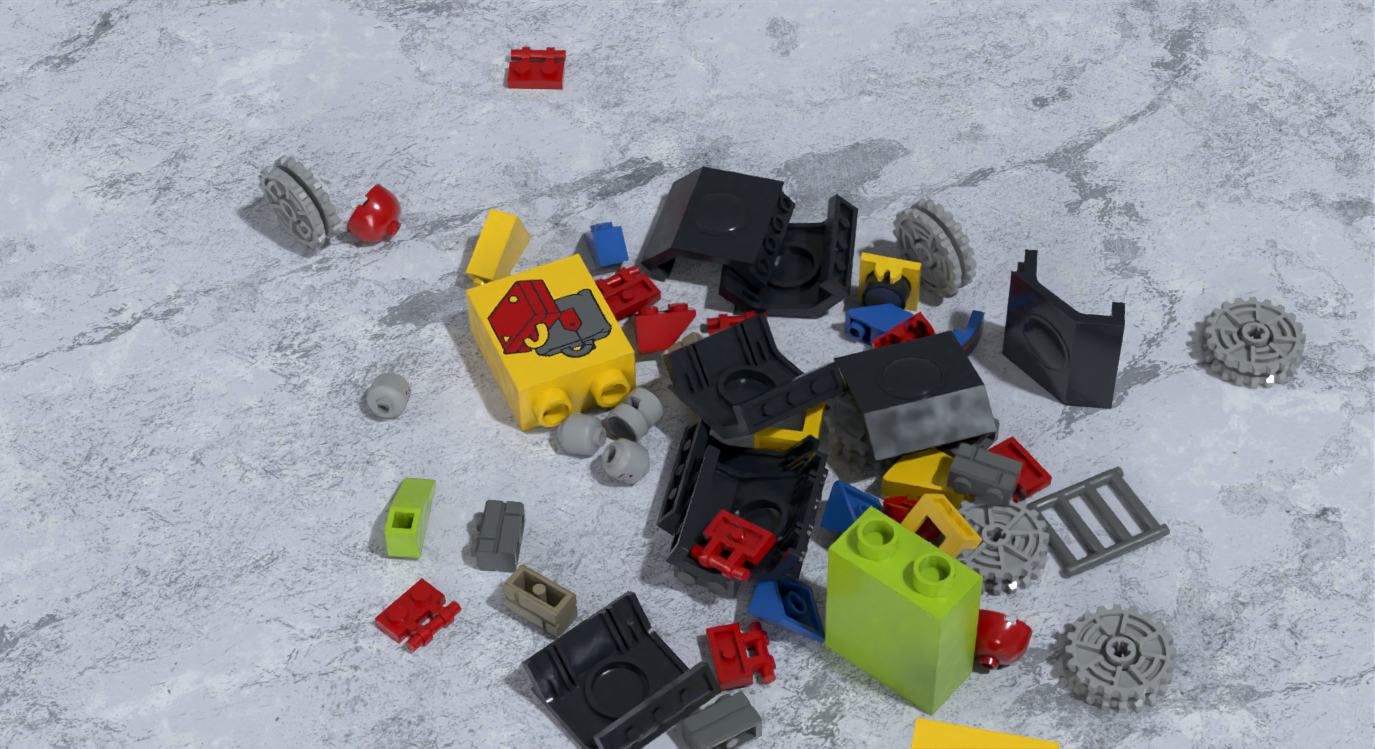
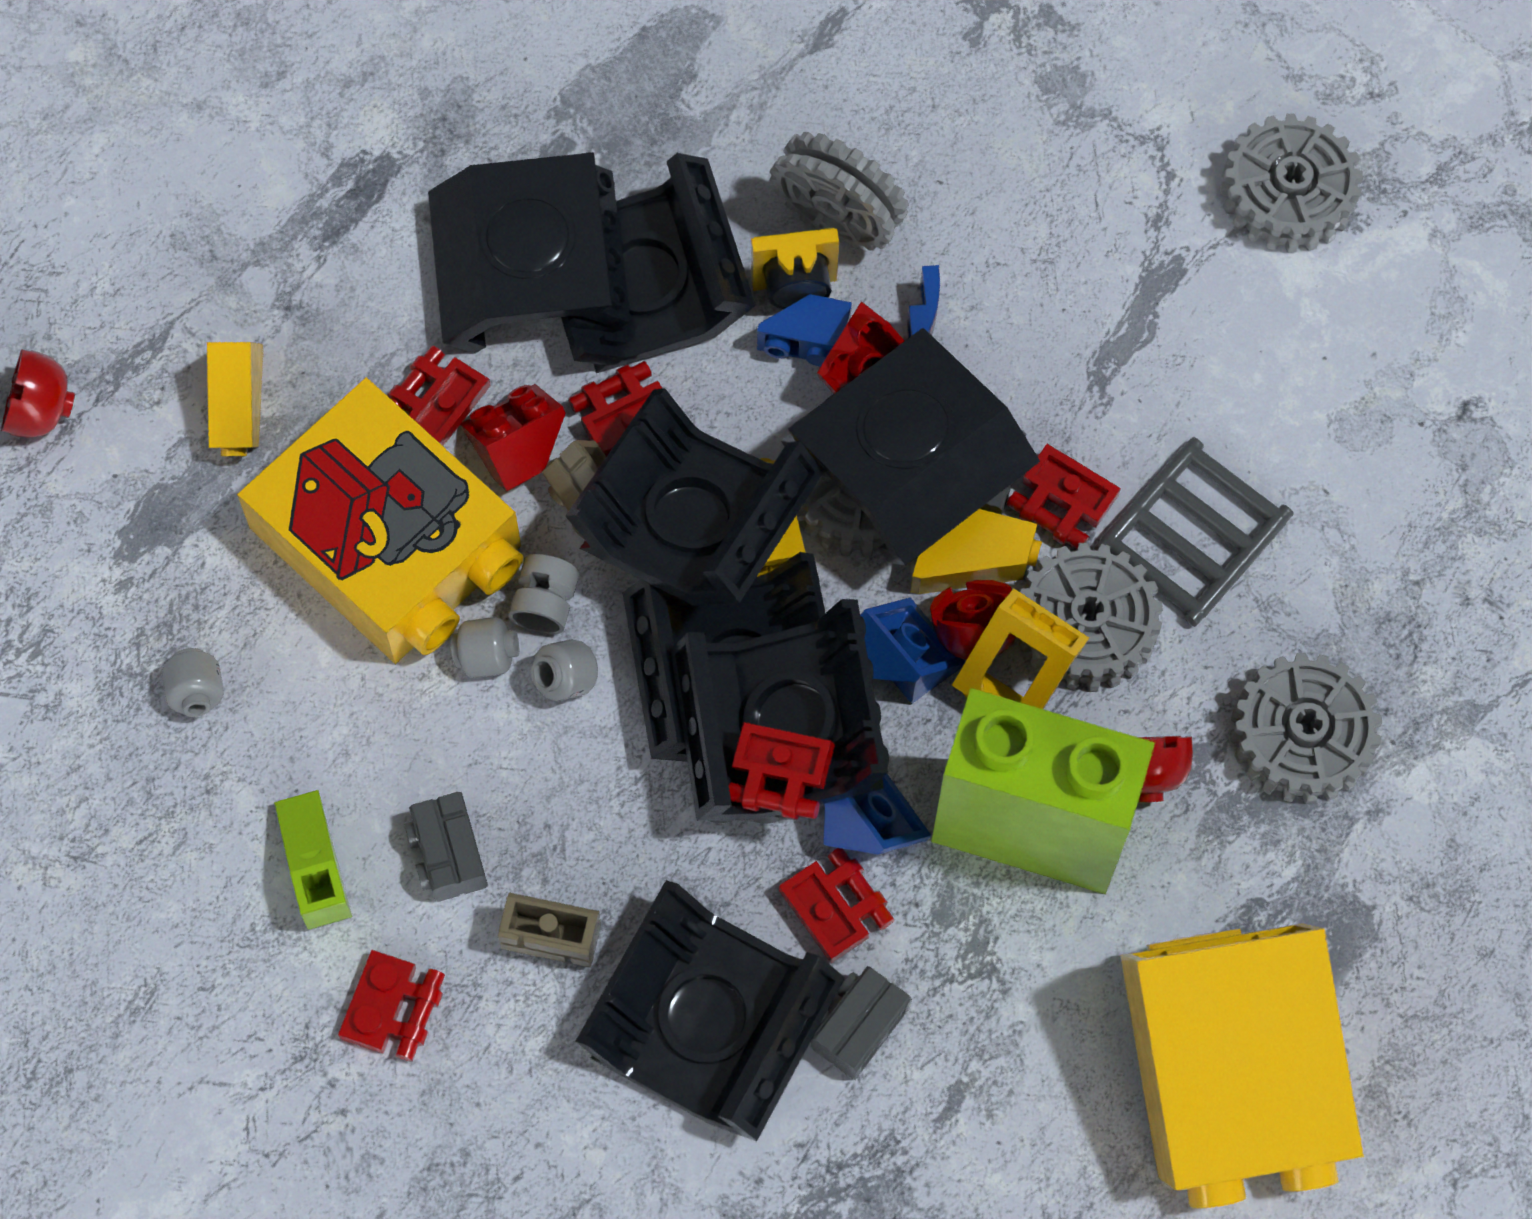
camera: 25 degrees left, 20 degrees up
(536, 74) = (144, 63): red plate -> none
(606, 244) = (379, 326): blue slope -> none
(984, 475) = (1047, 531): dark grey brick -> none
(1059, 347) = (1060, 296): black panel -> none

